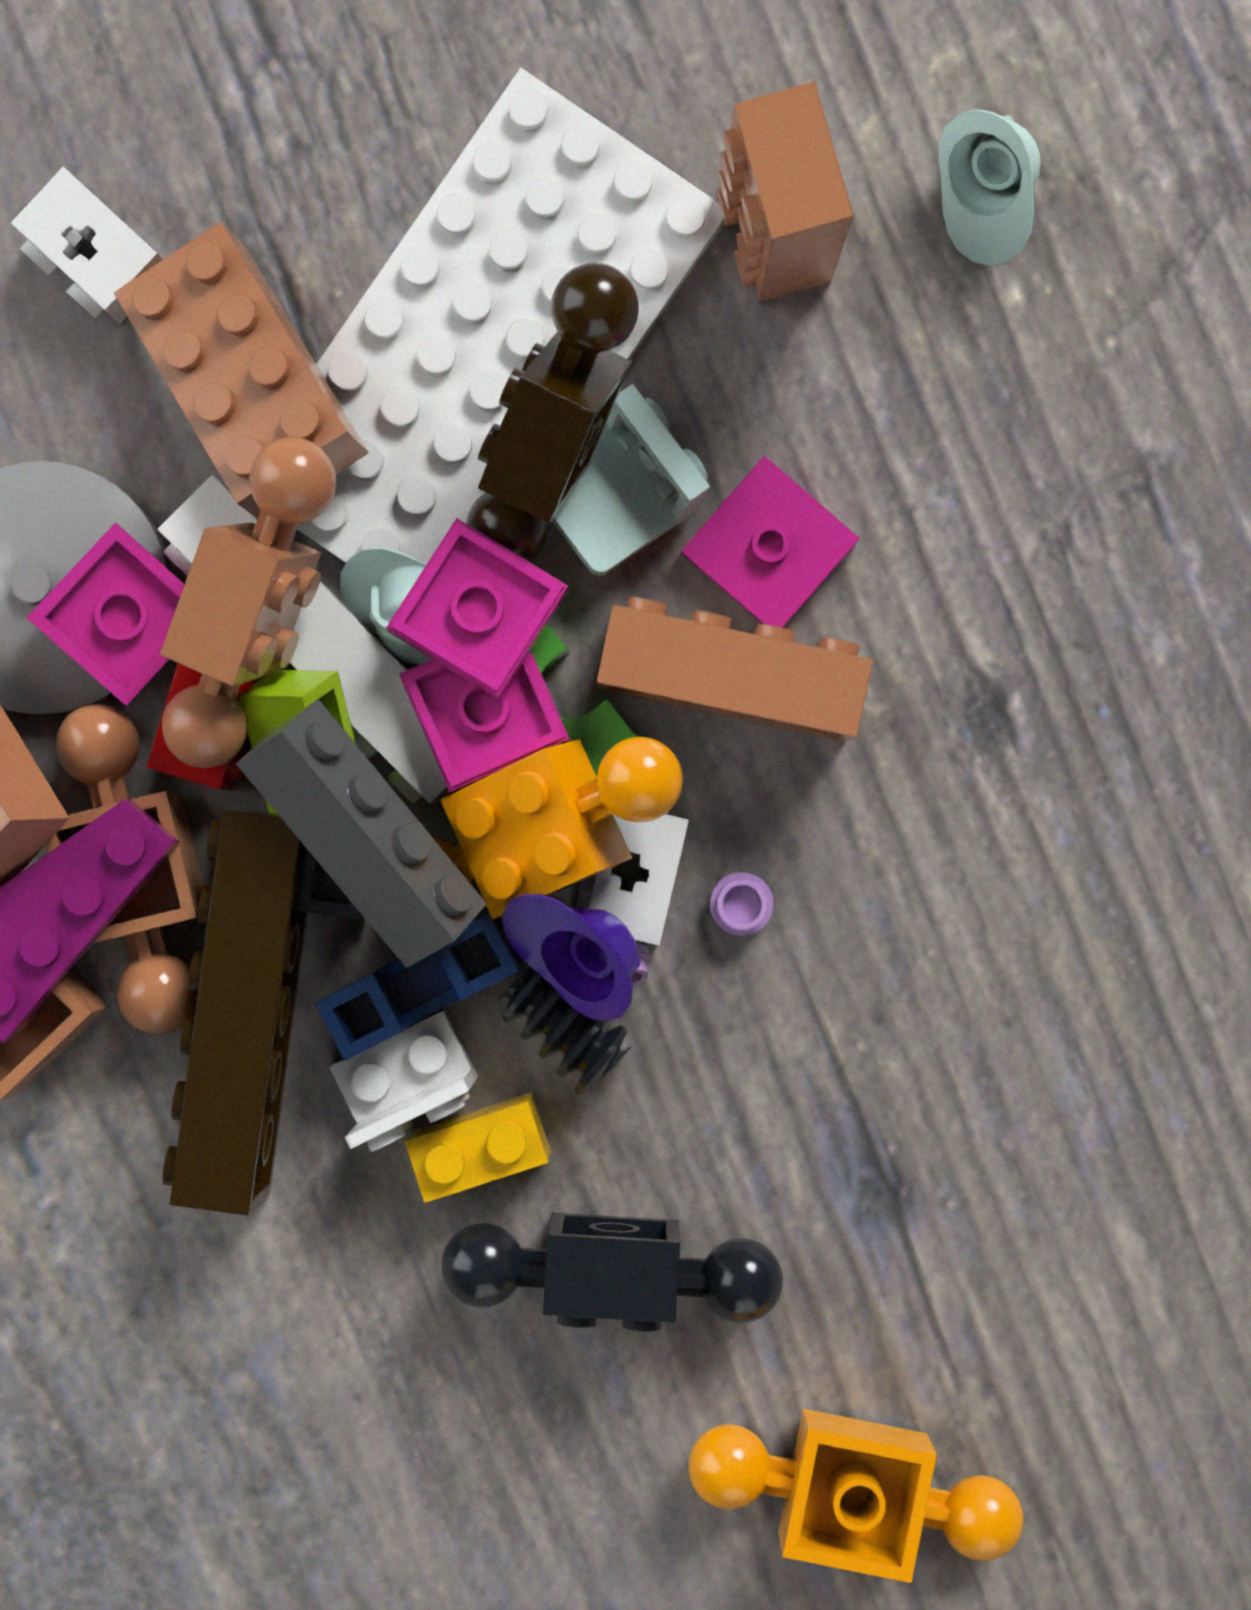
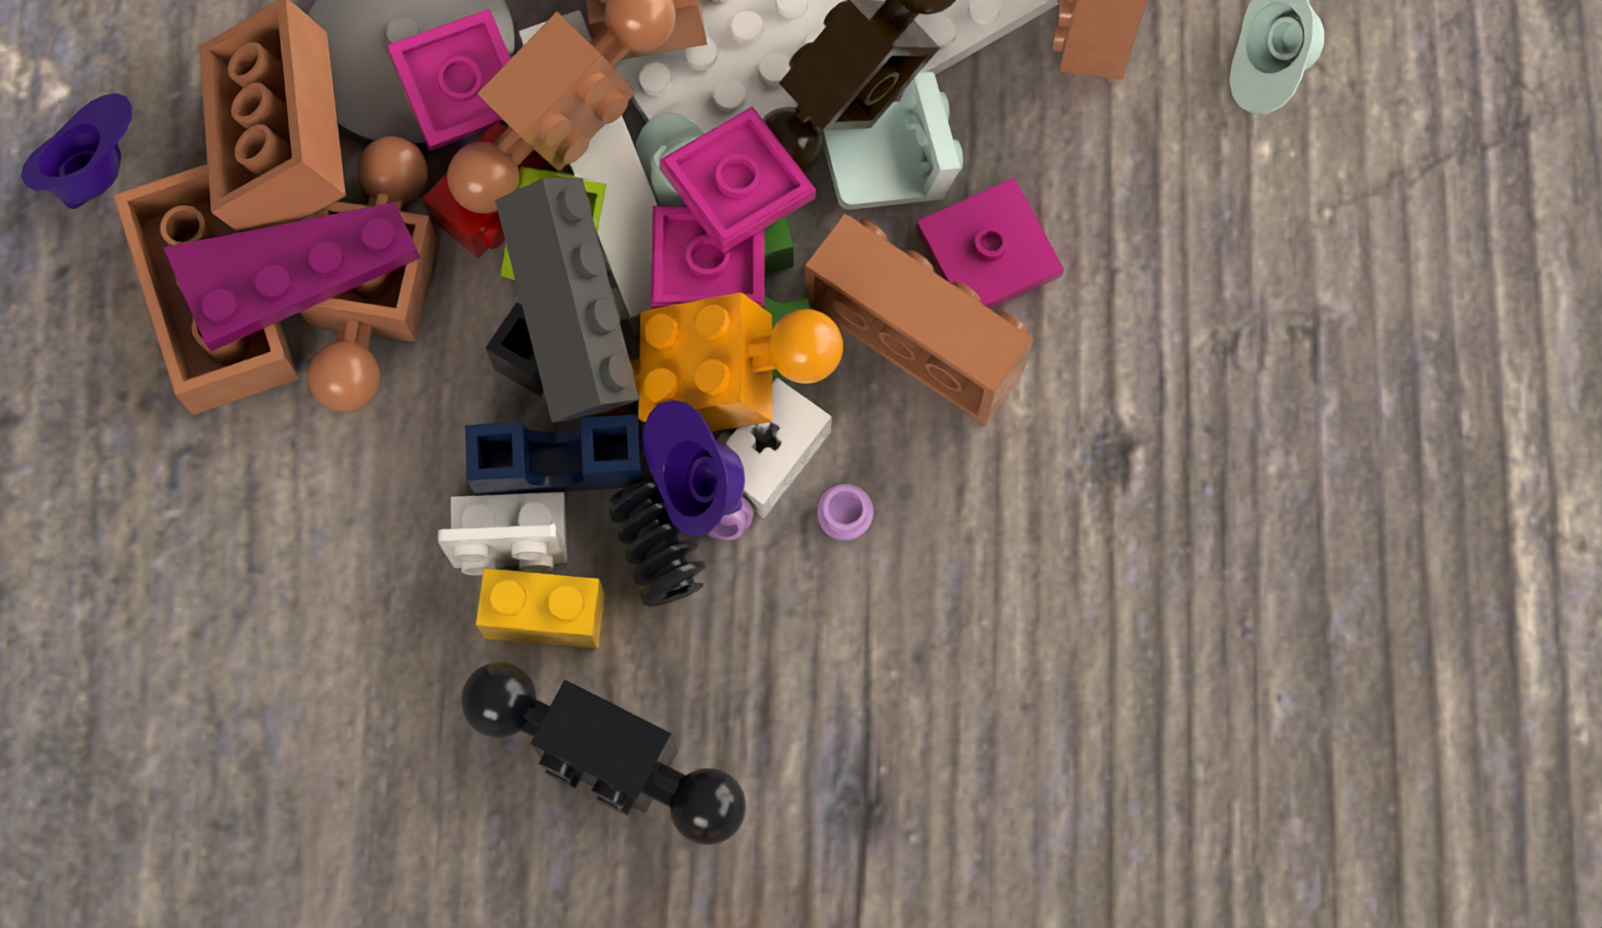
camera: 25 degrees right, 15 degrees down
(241, 1017) = (401, 416): dark brown brick -> none

